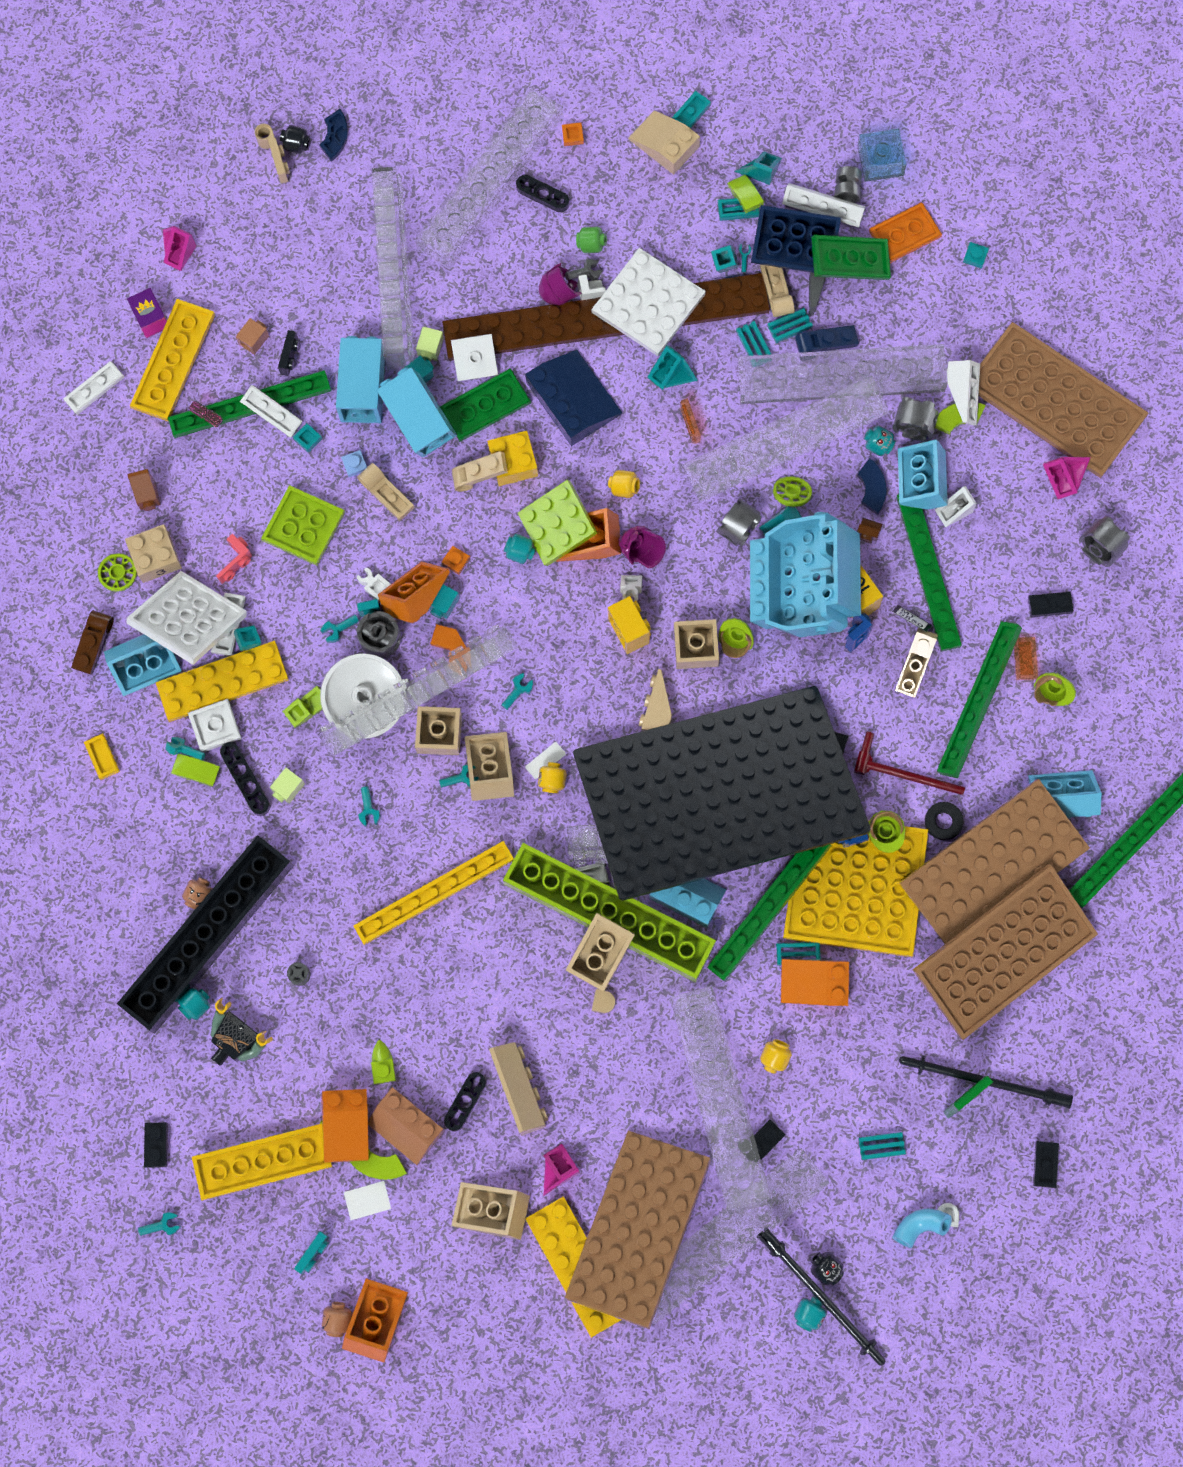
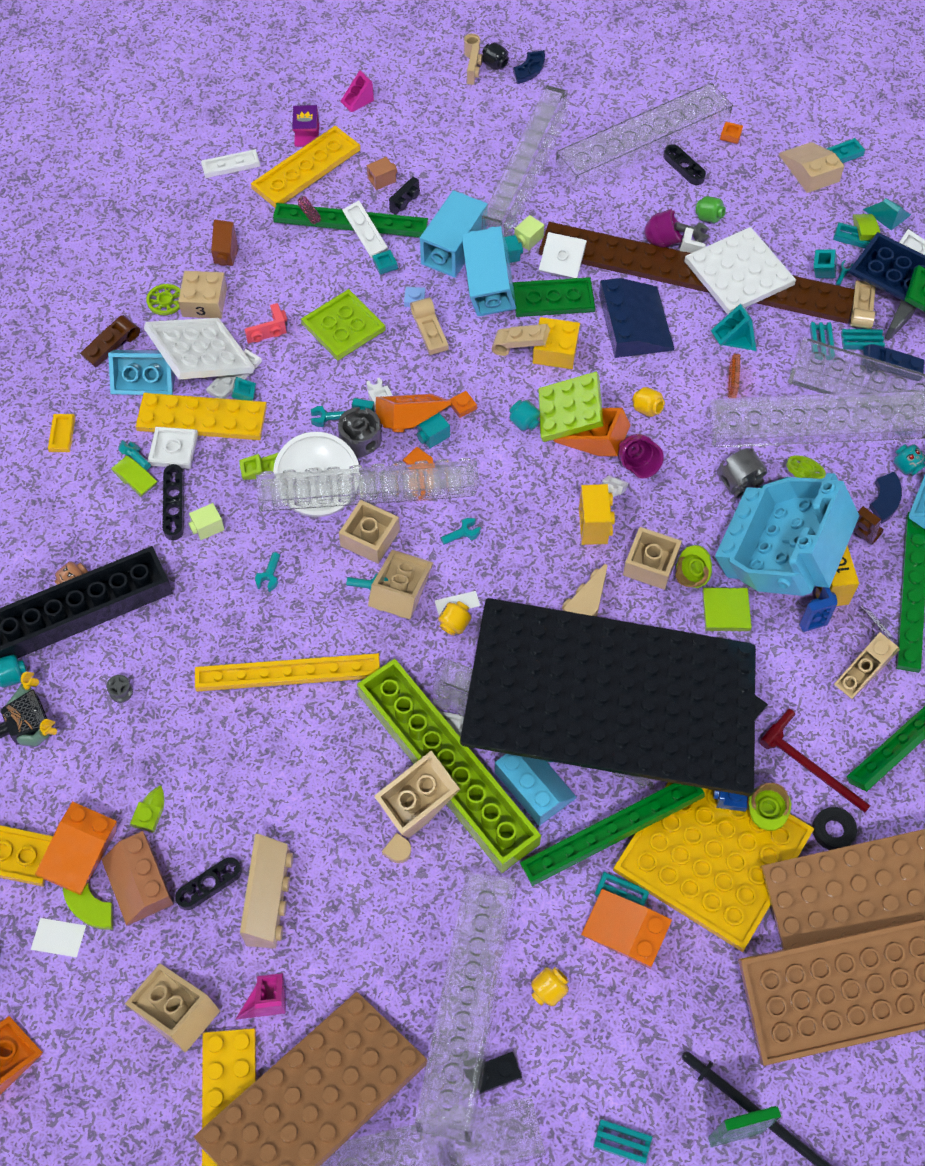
camera: 20 degrees right, 15 degrees down
(778, 661) = (726, 609): none -> lime tile

